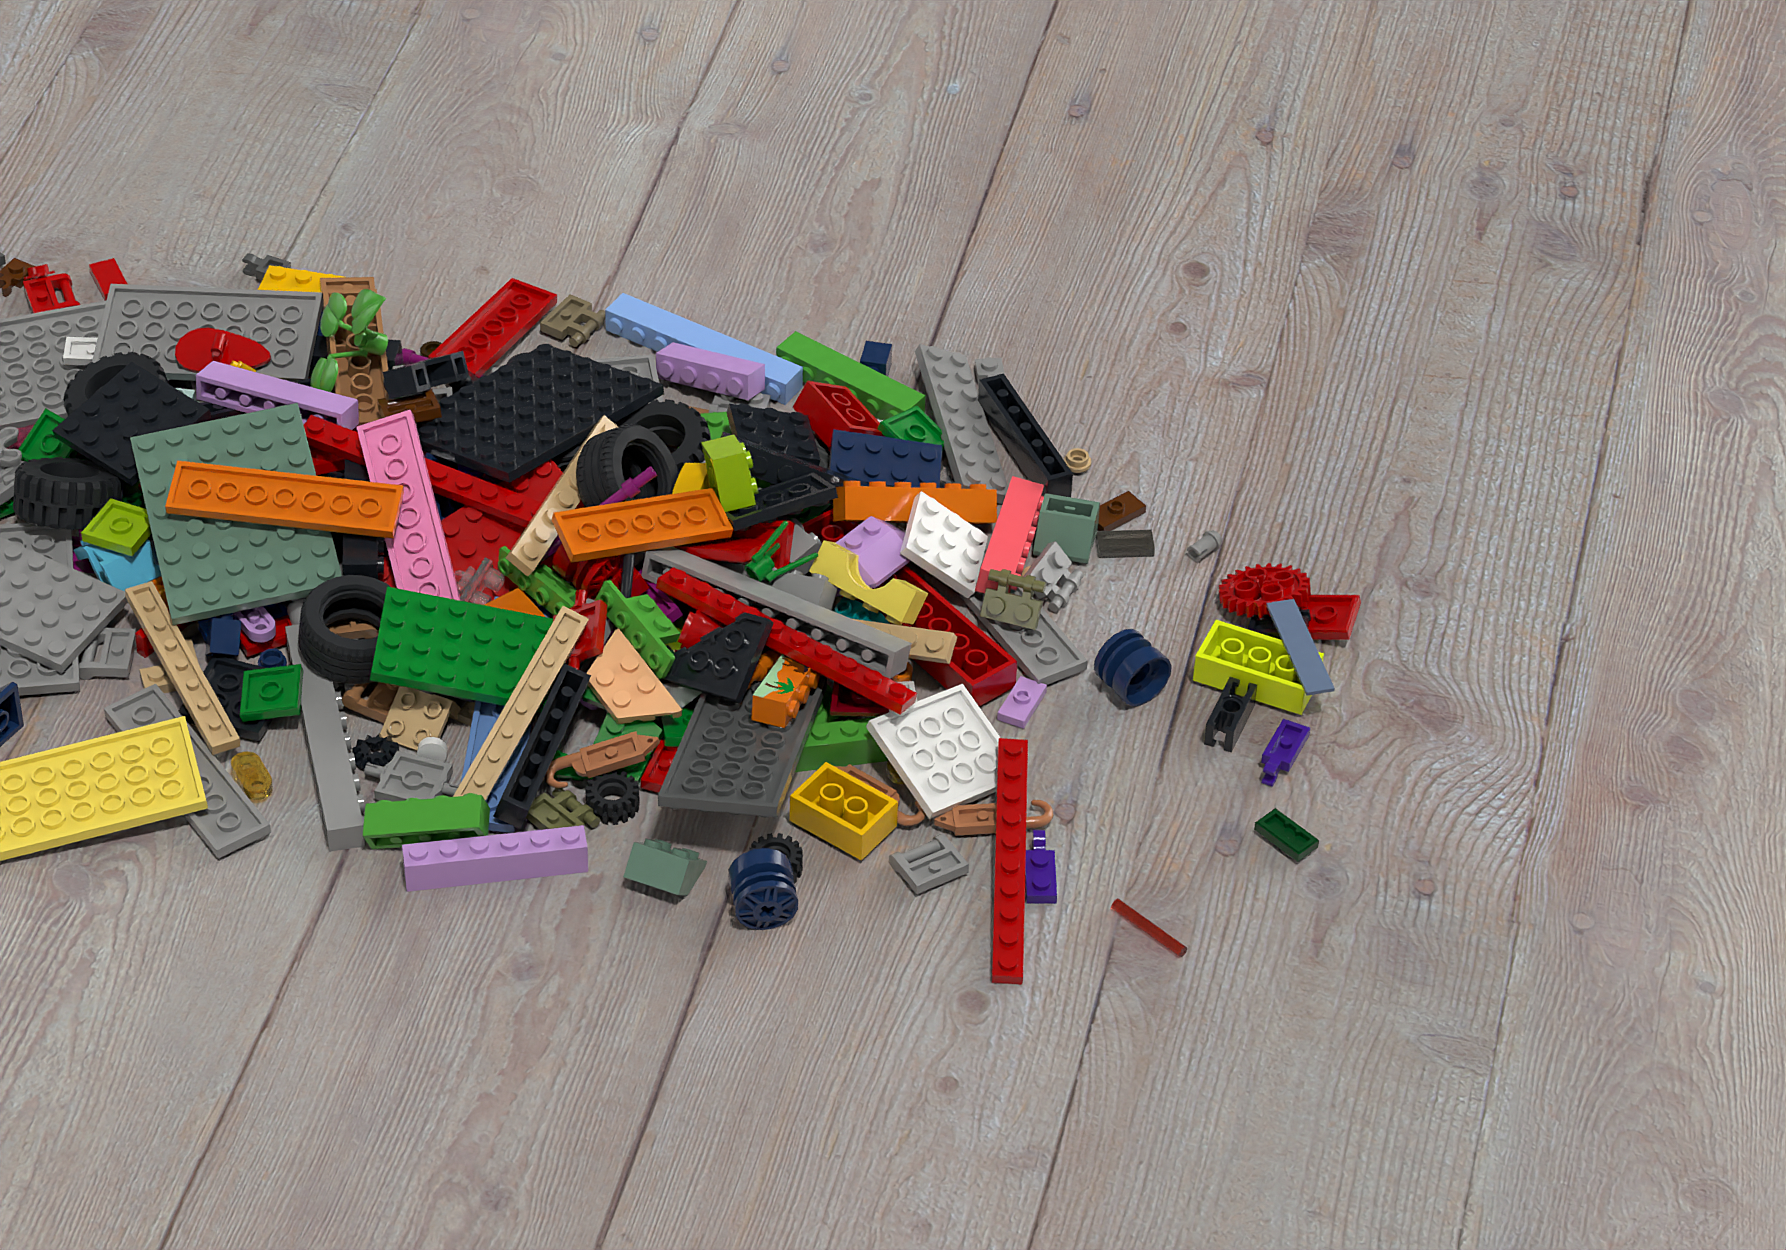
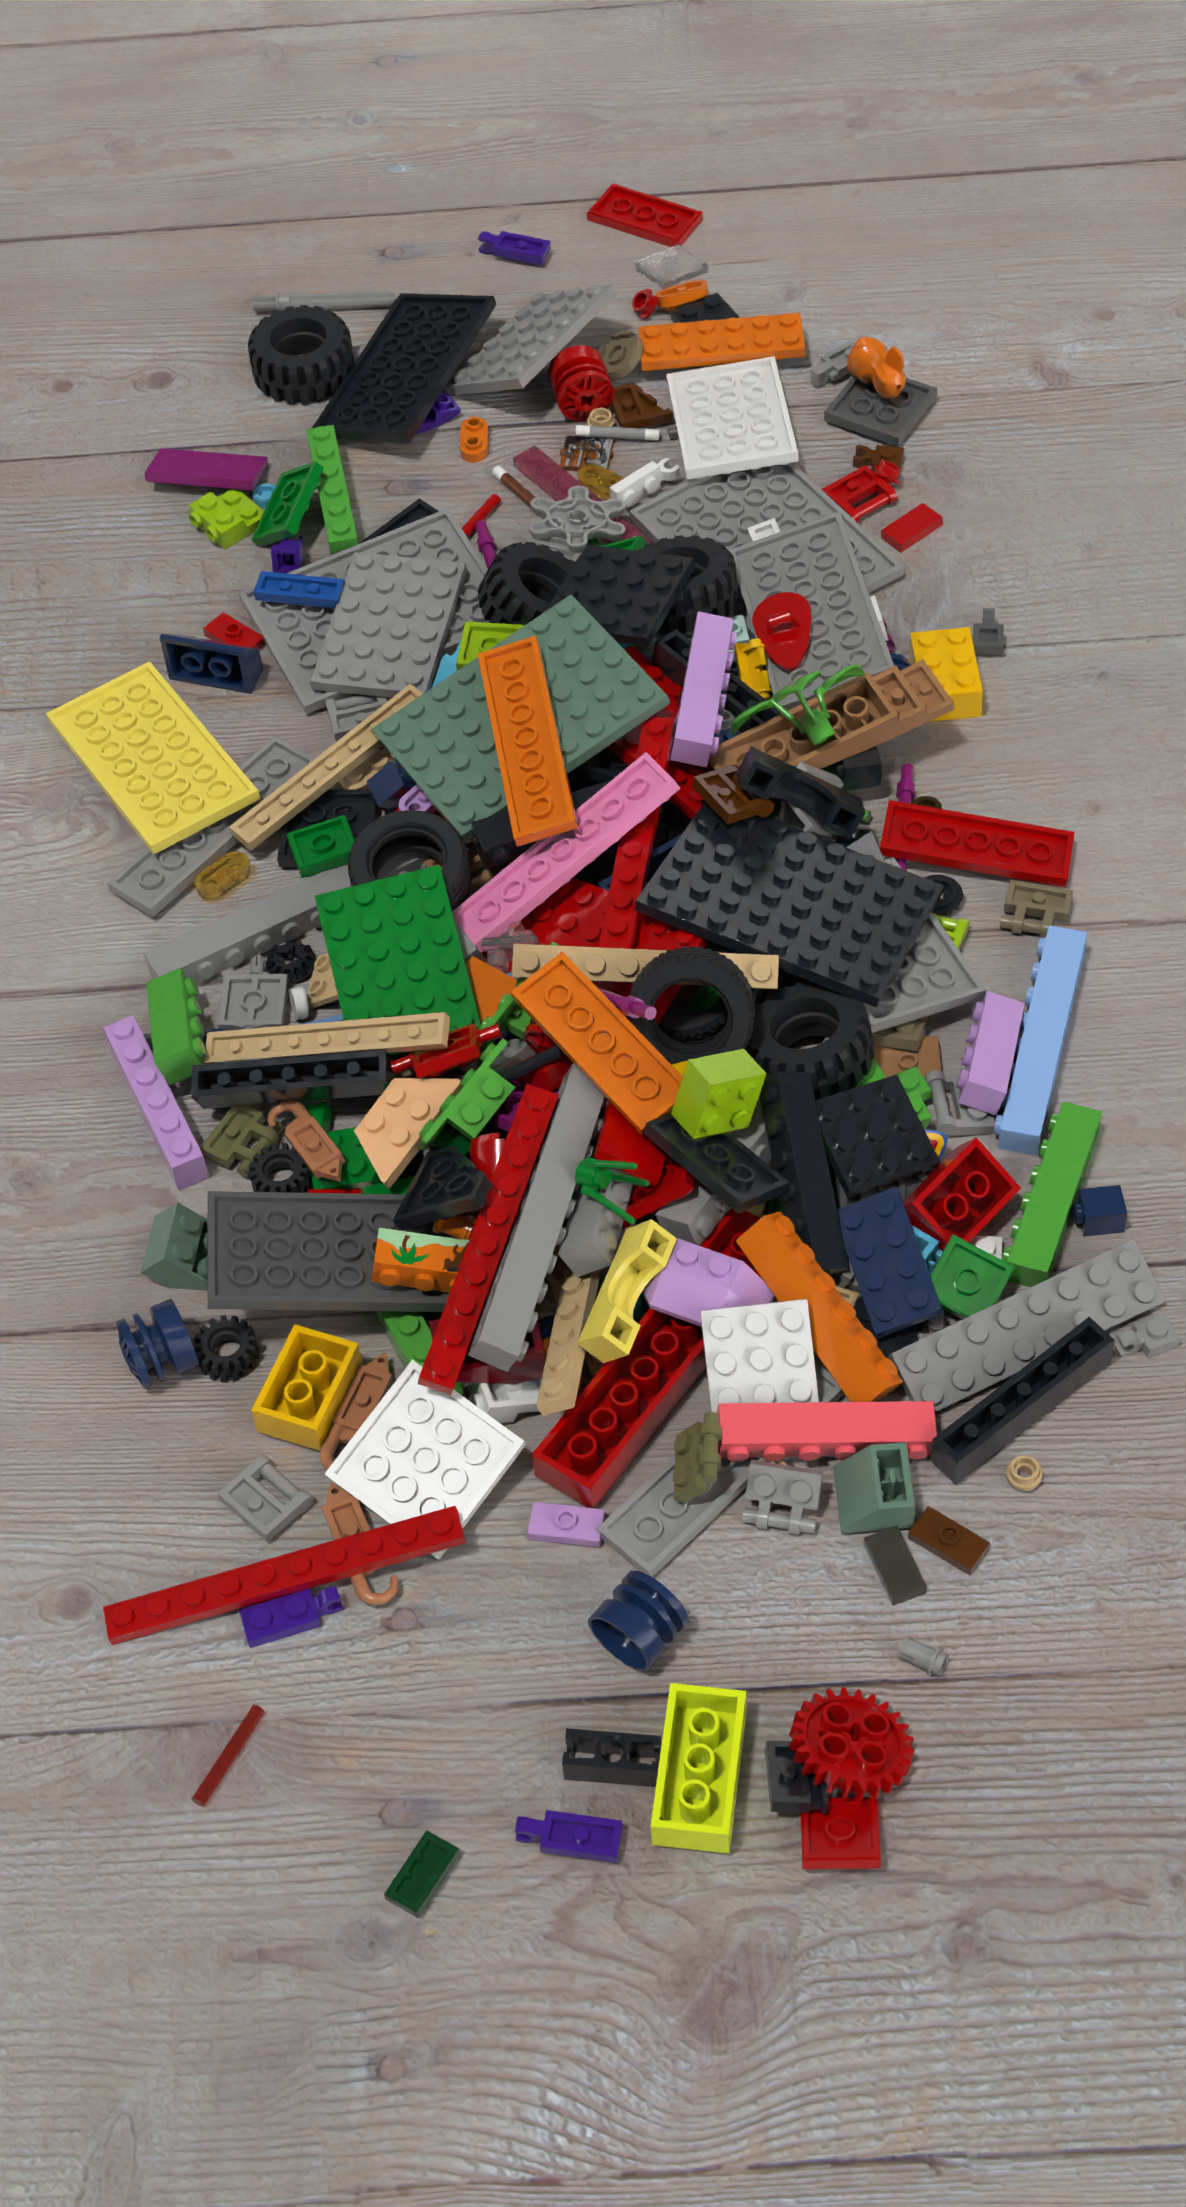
camera: 80 degrees right, 10 degrees up
(1300, 647) = (725, 1802): sand blue piece -> none

